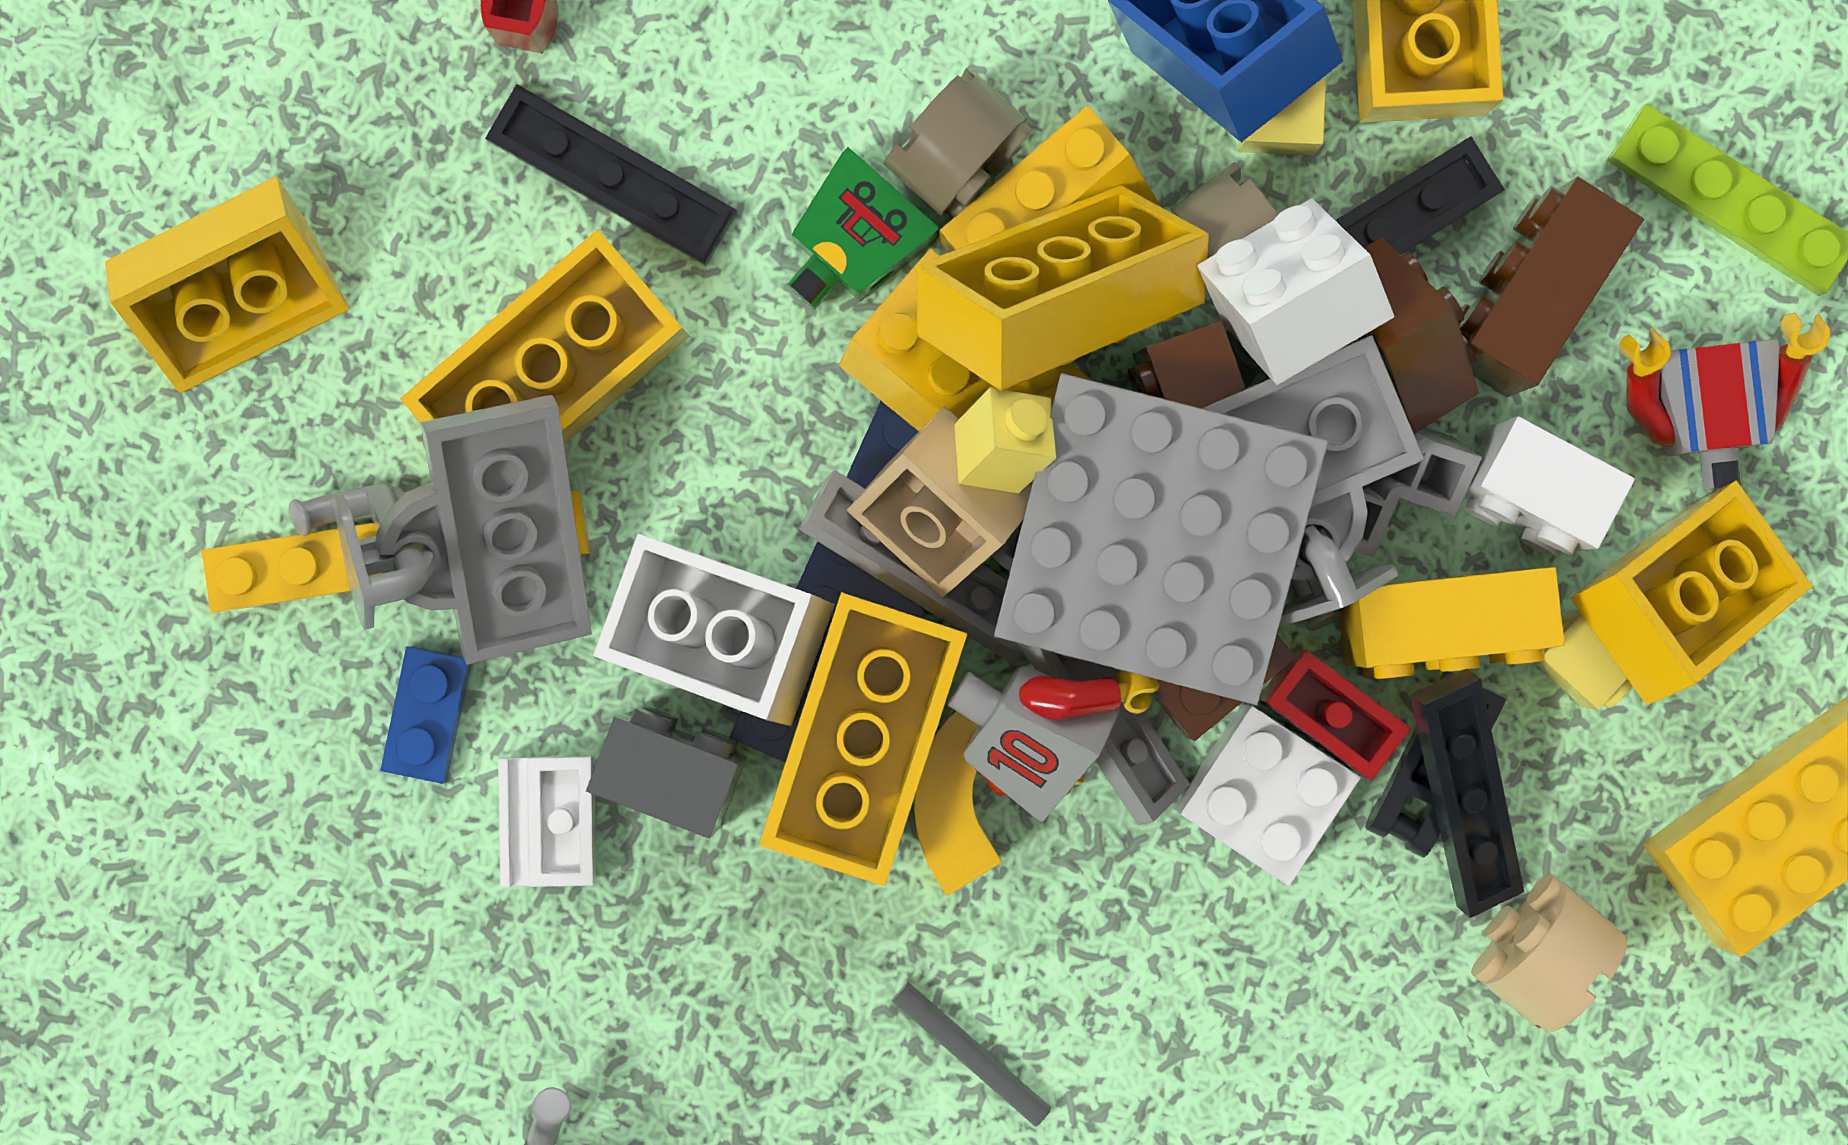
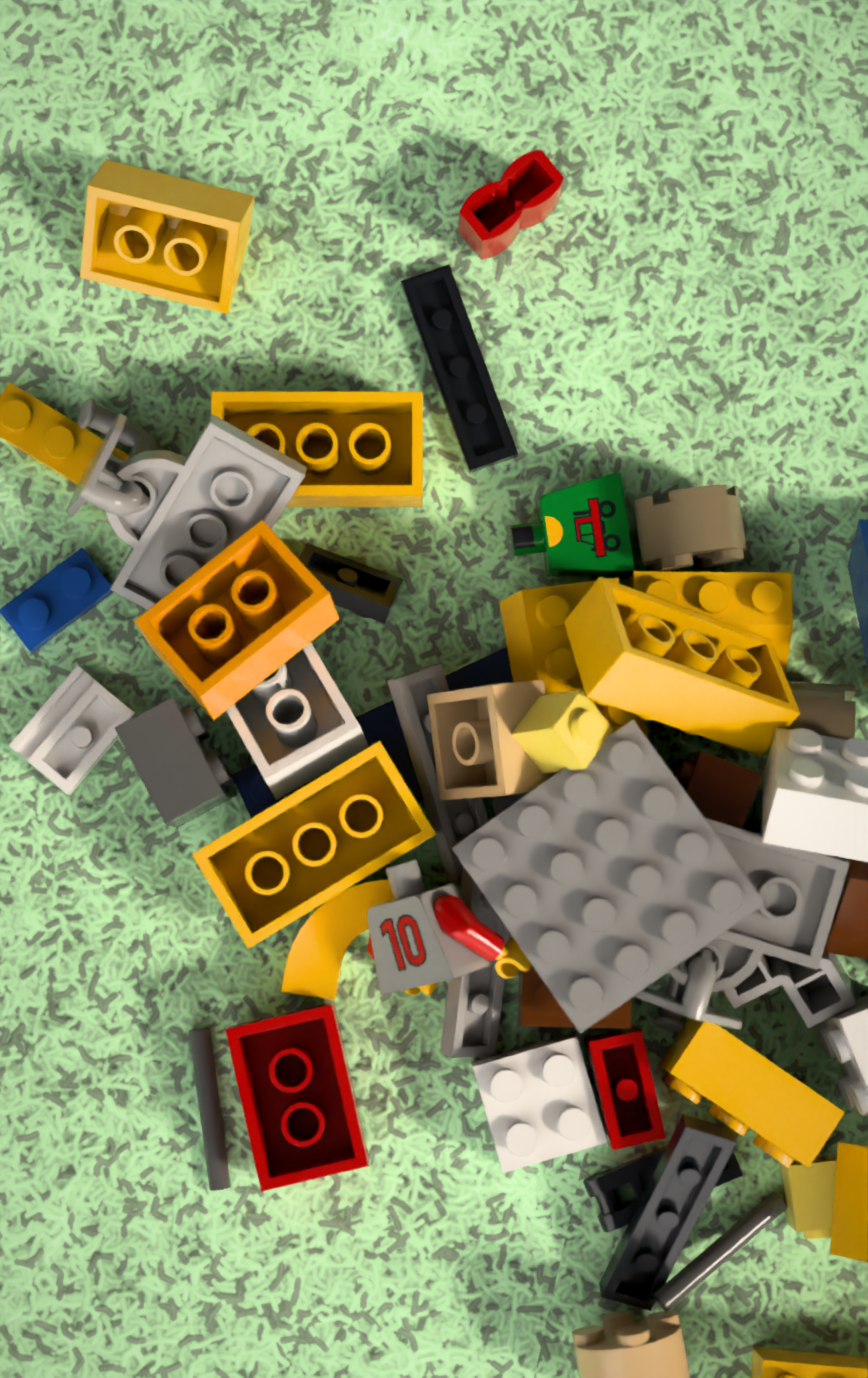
camera: 35 degrees right, 5 degrees down
(612, 592) = (238, 619): none -> light orange brick
(680, 469) = (353, 584): none -> plate
(1043, 976) = (297, 1096): none -> red brick
(1542, 785) = (719, 1251): none -> dark grey bar

